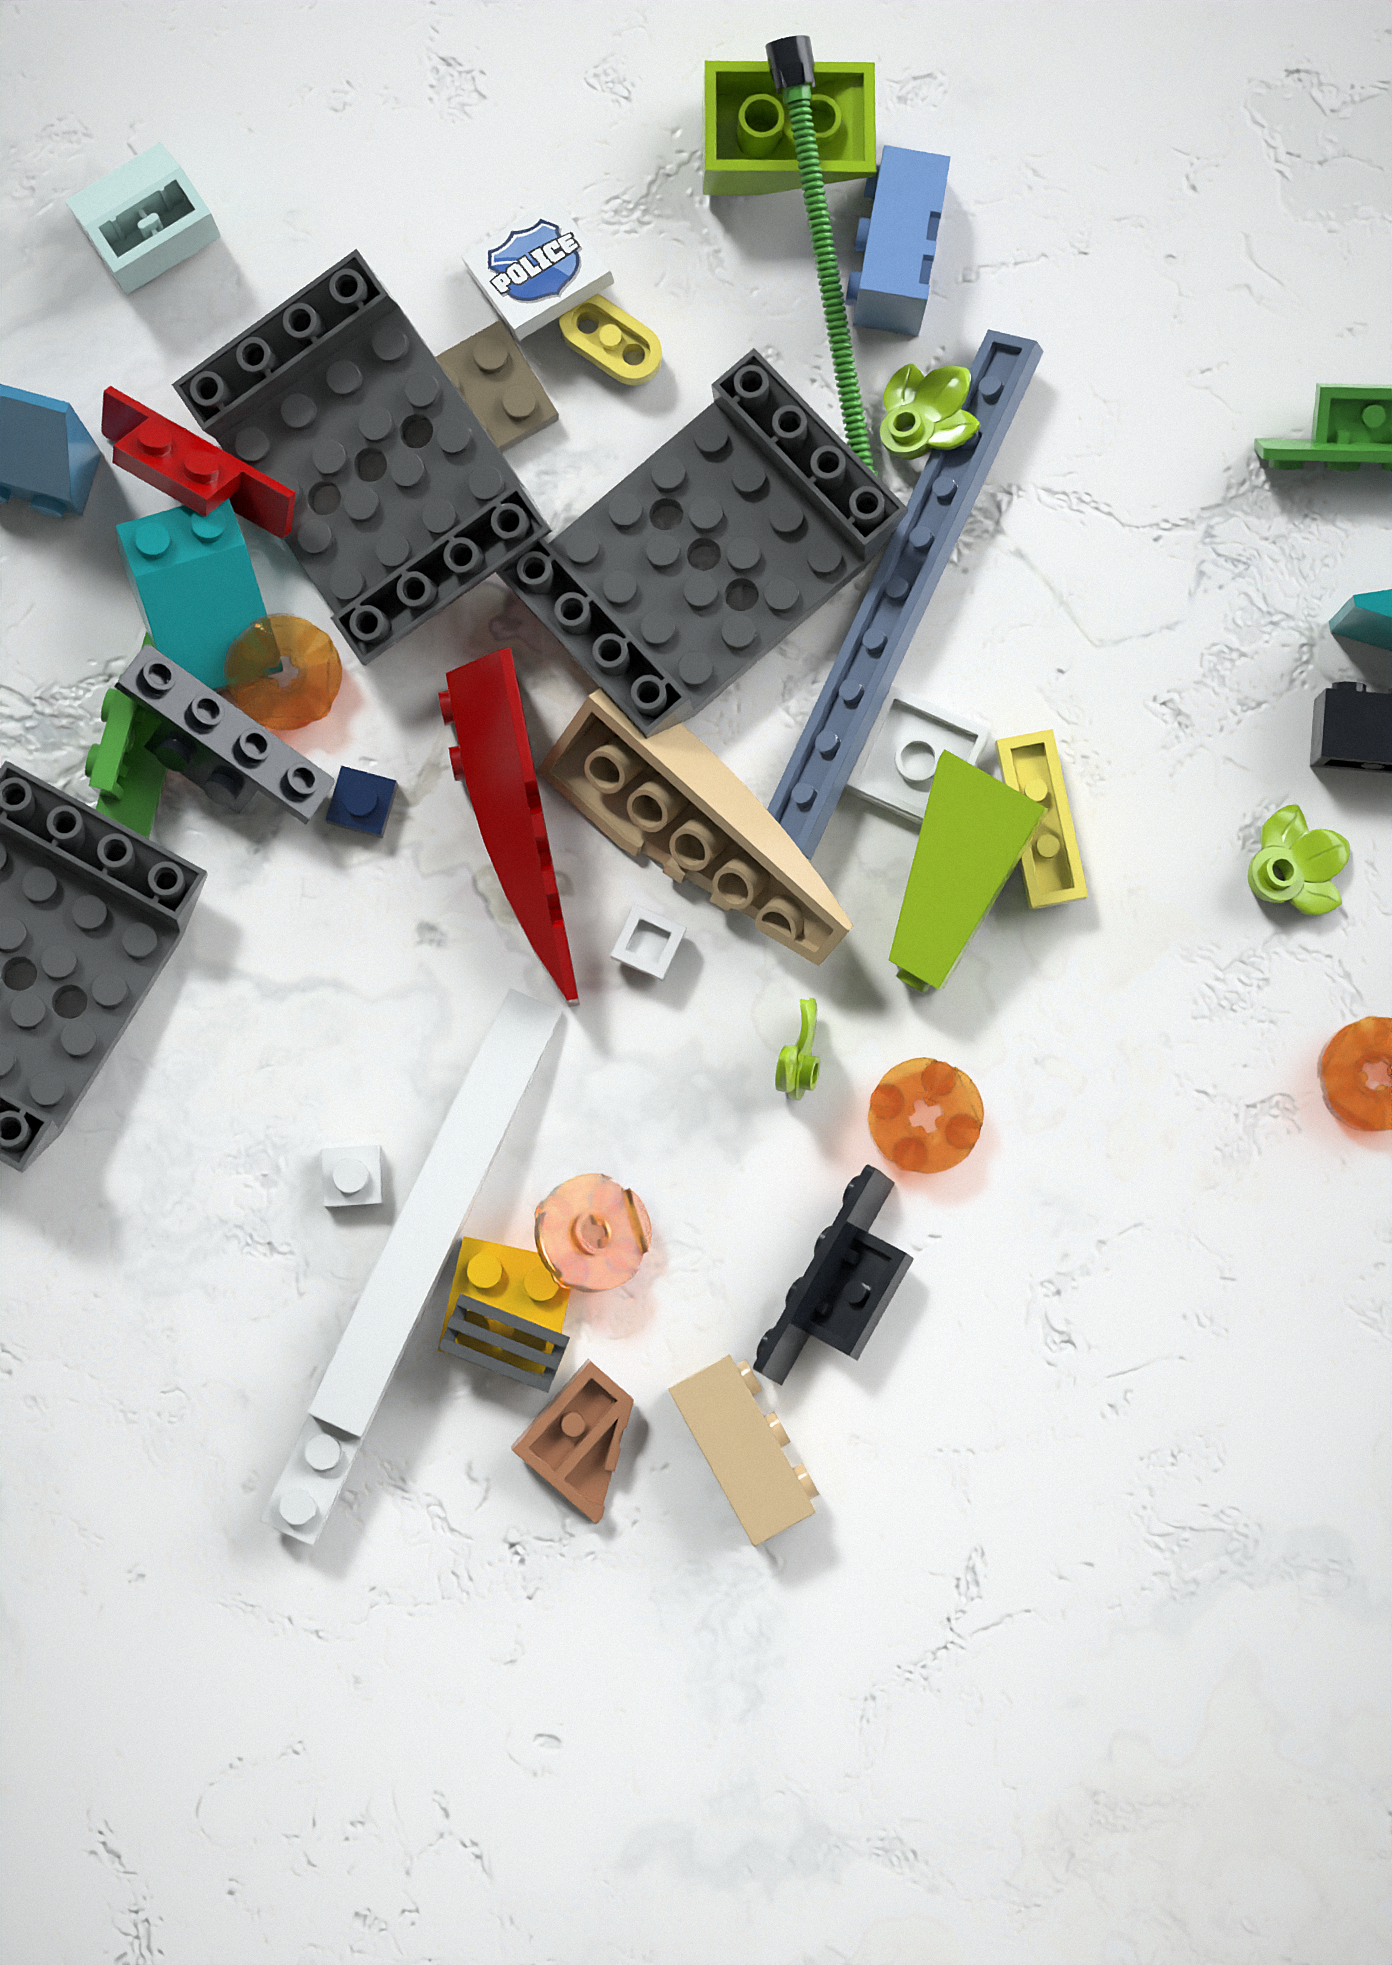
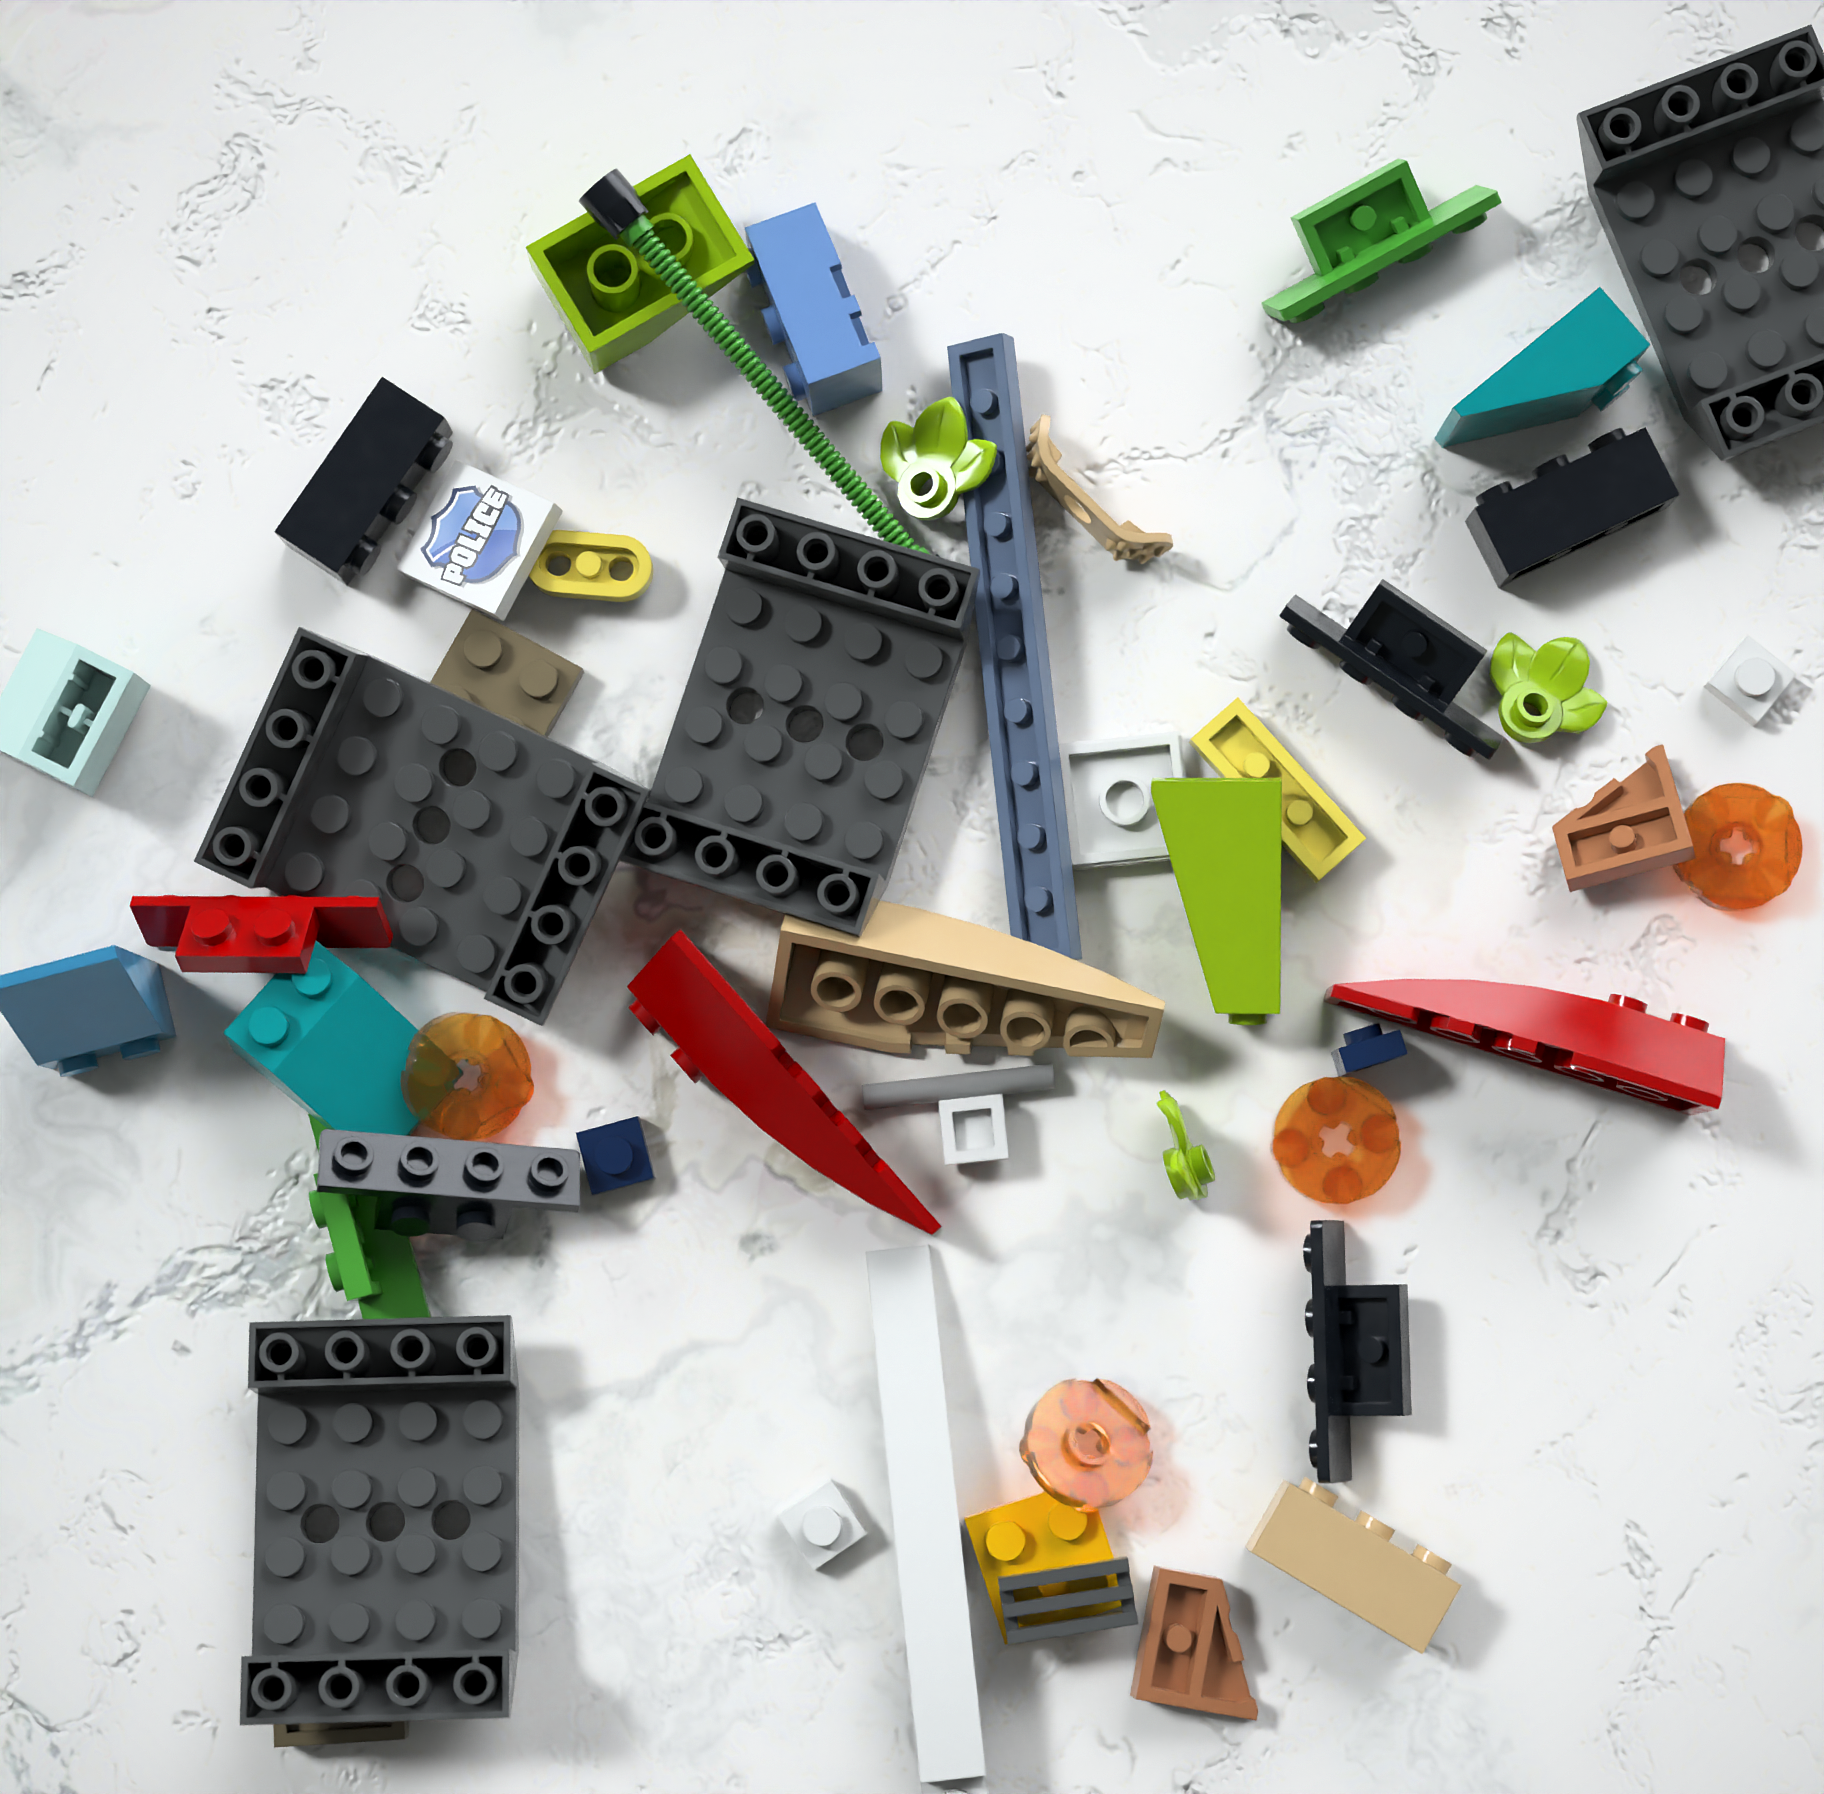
camera: 25 degrees left, 0 degrees up
(477, 175) = (366, 482): none -> black brick
(634, 892) = (958, 1086): none -> light grey piece
(992, 1060) = (1368, 1048): none -> dark blue plate
(1035, 556) = (1121, 540): none -> tan piece
(1147, 1132) = (1560, 1033): none -> wedge
(1205, 772) = (1408, 655): none -> black bracket
(1296, 1007) = (1625, 828): none -> nougat wing

